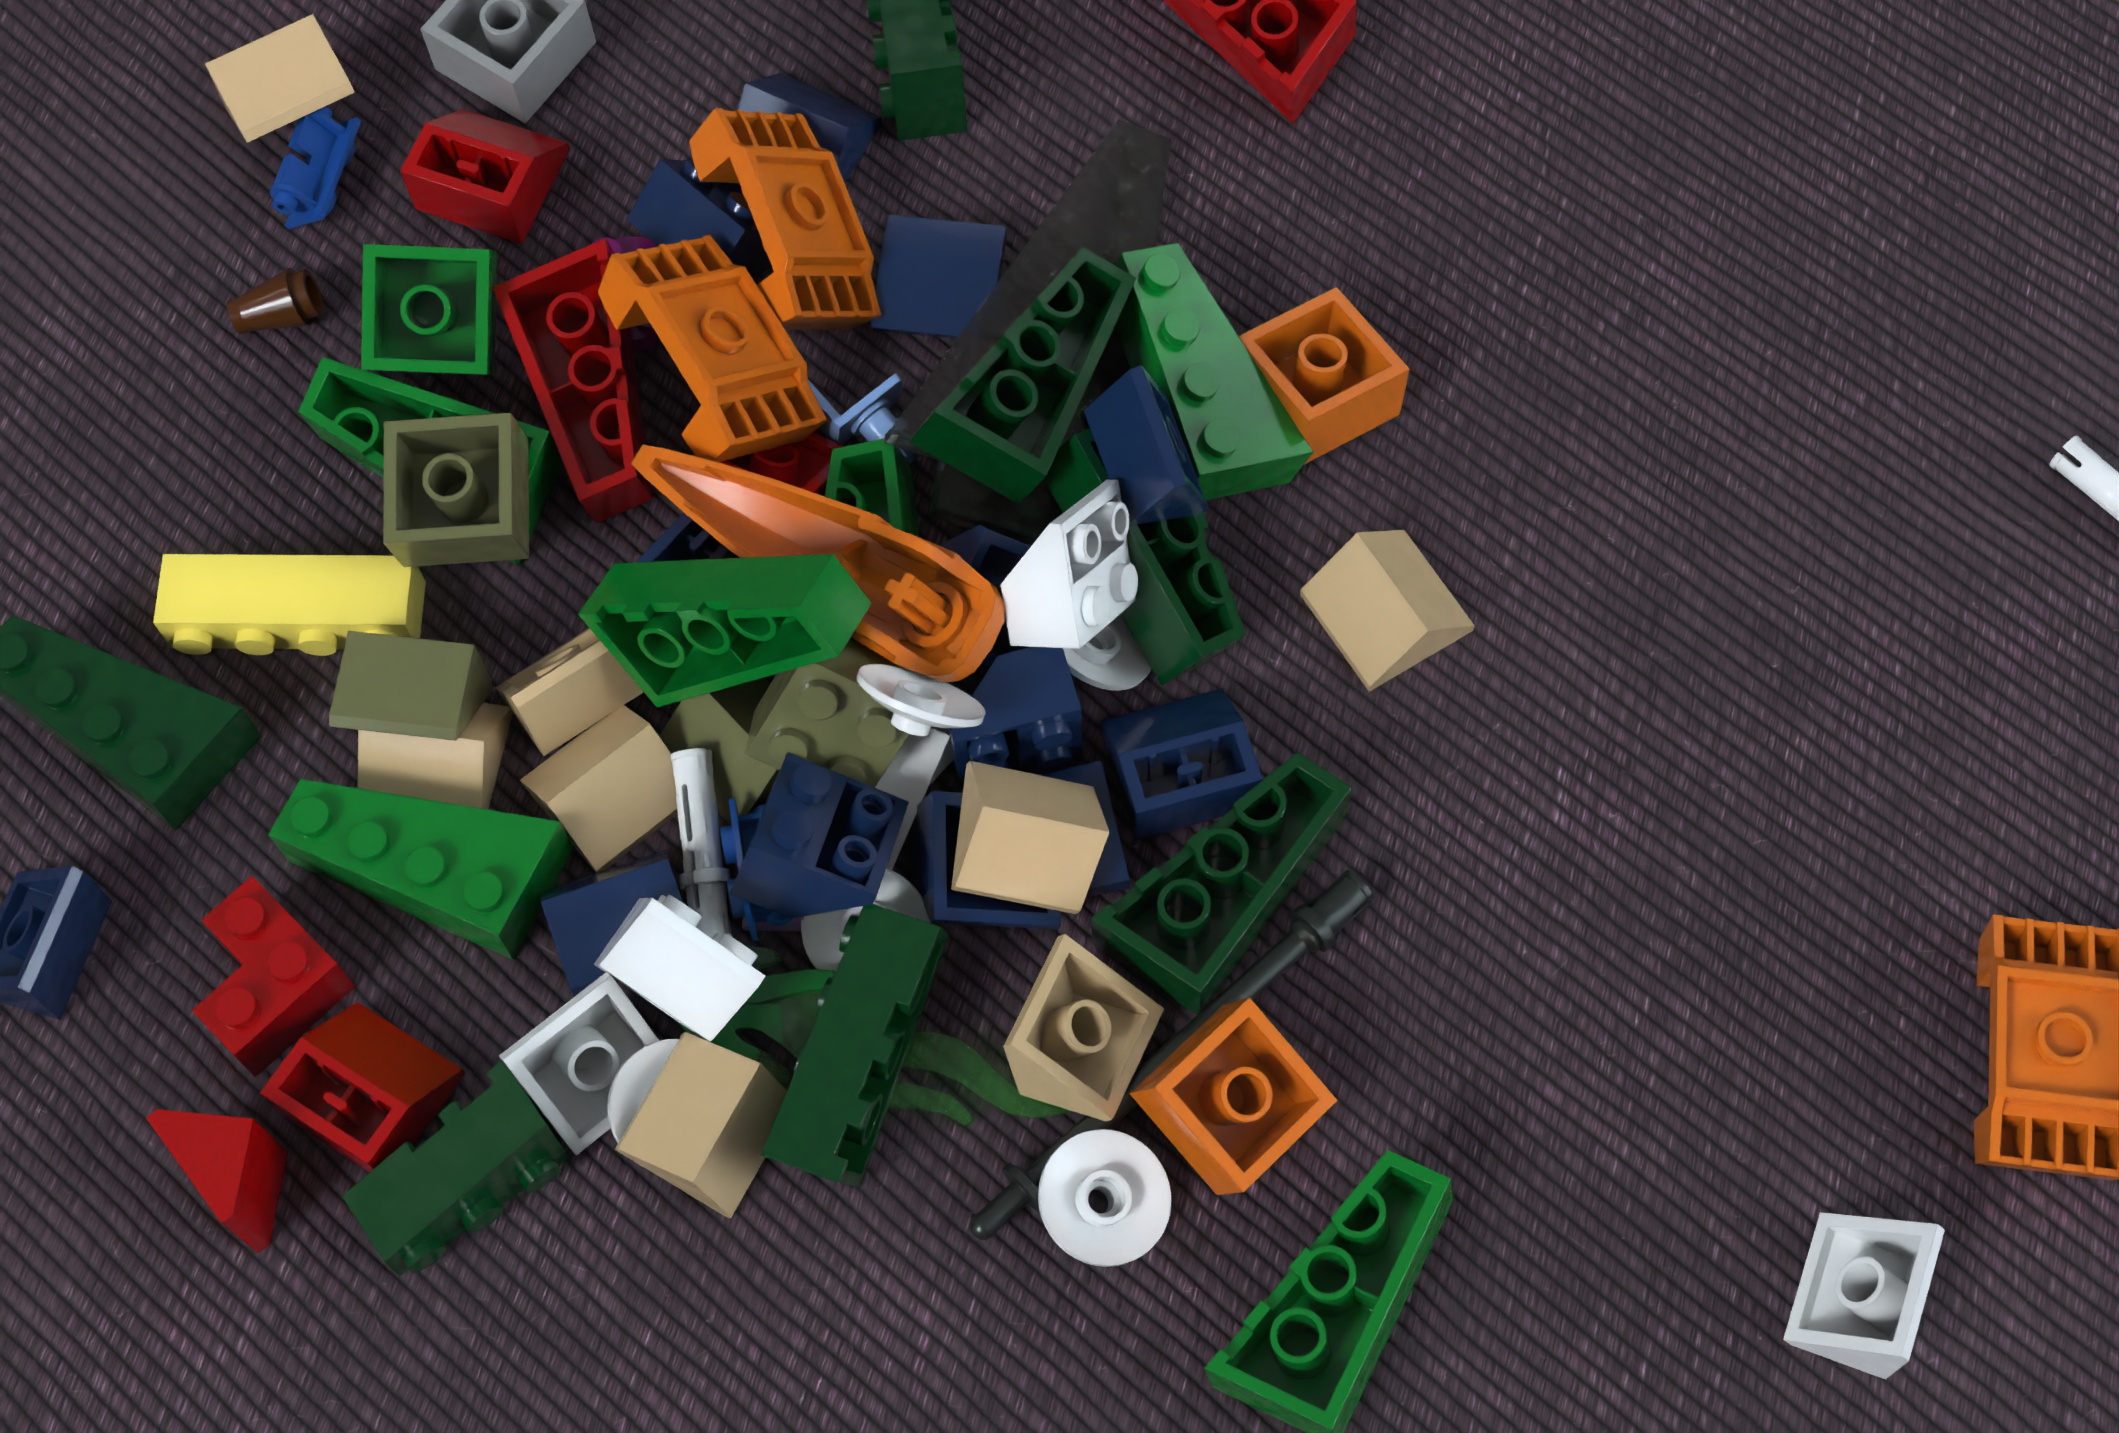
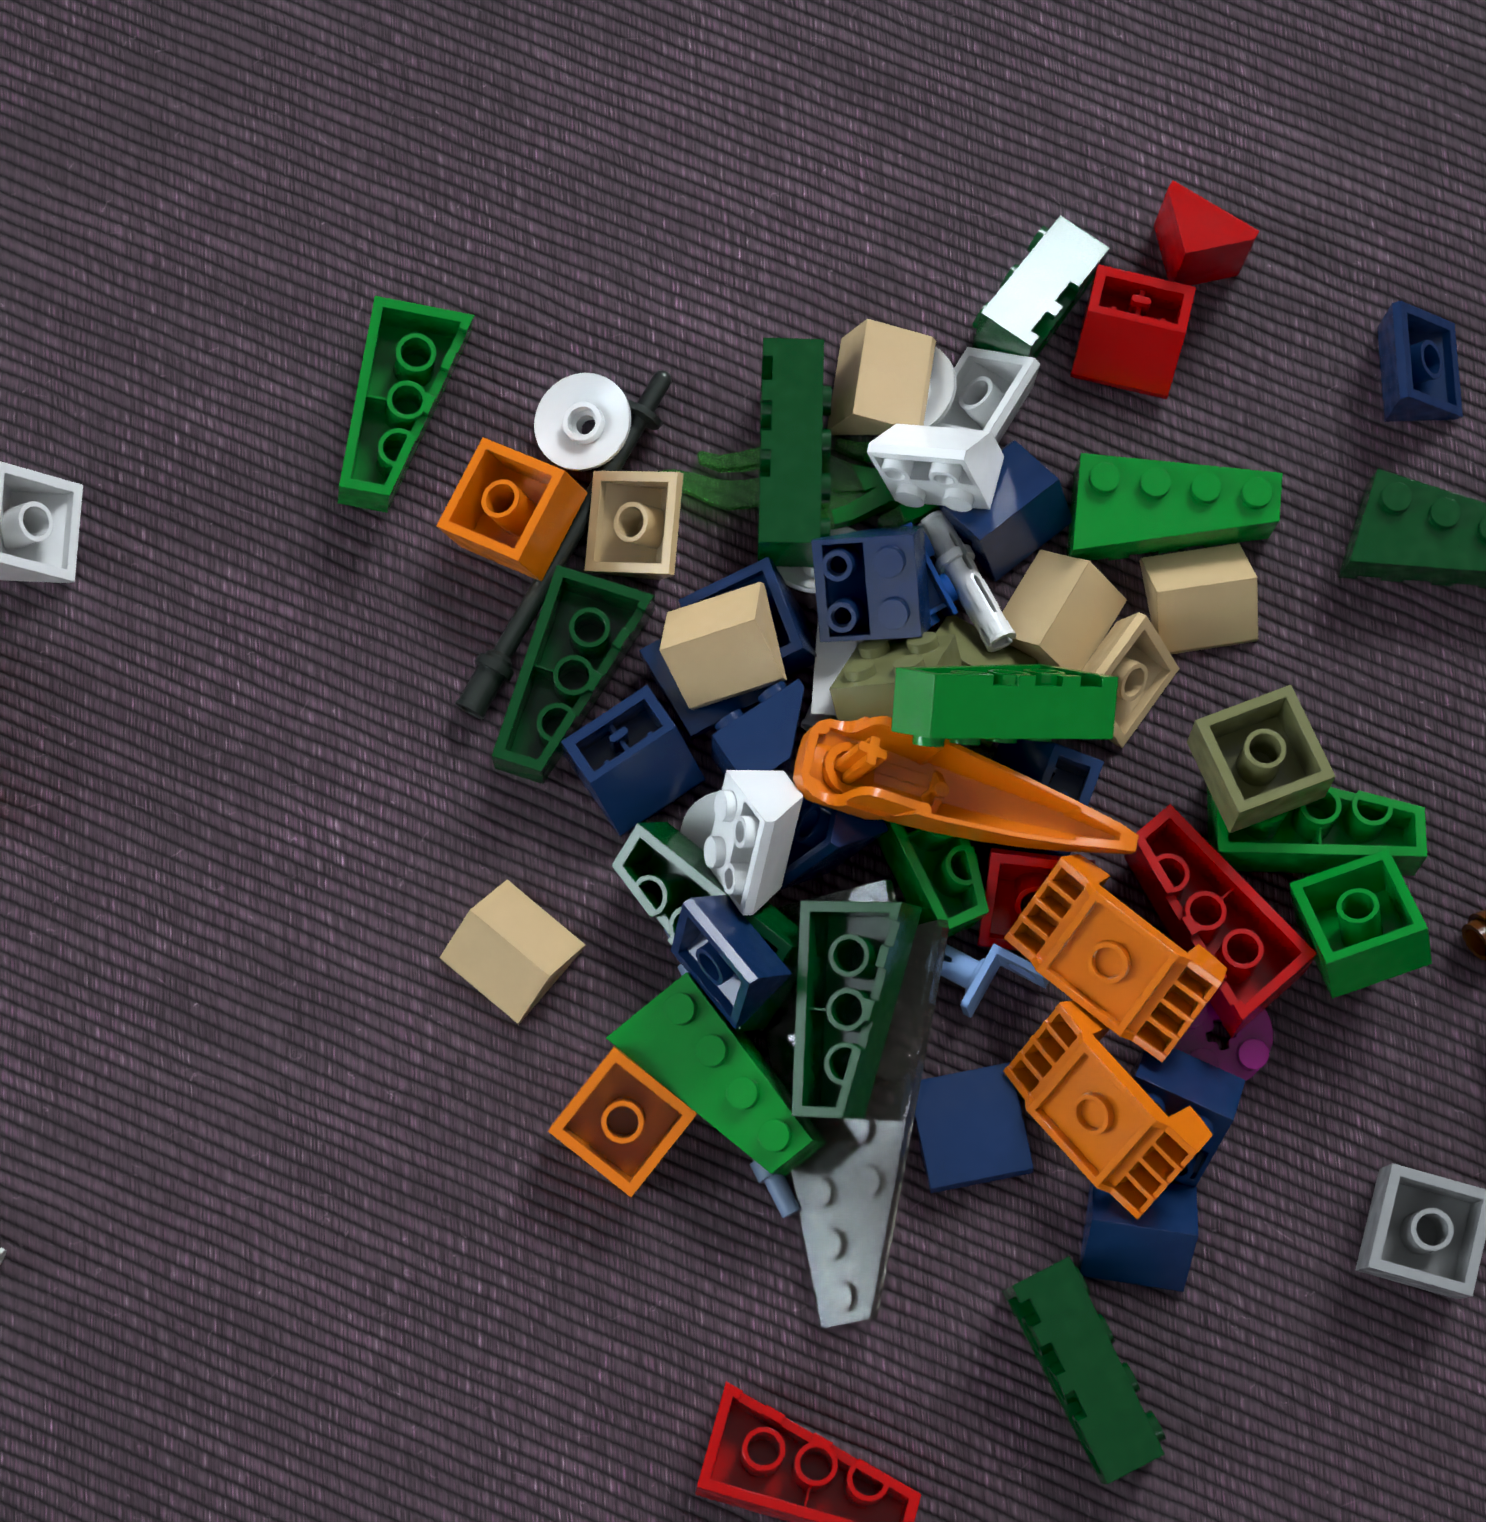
camera: 155 degrees right, 10 degrees up
(282, 980) = (1231, 398): red brick -> none
(284, 601) = (1371, 669): light yellow brick -> none
(408, 686) = (1232, 617): olive slope -> none
(482, 172) = (1387, 1101): red slope -> none
(919, 700) = (830, 684): white dish -> none

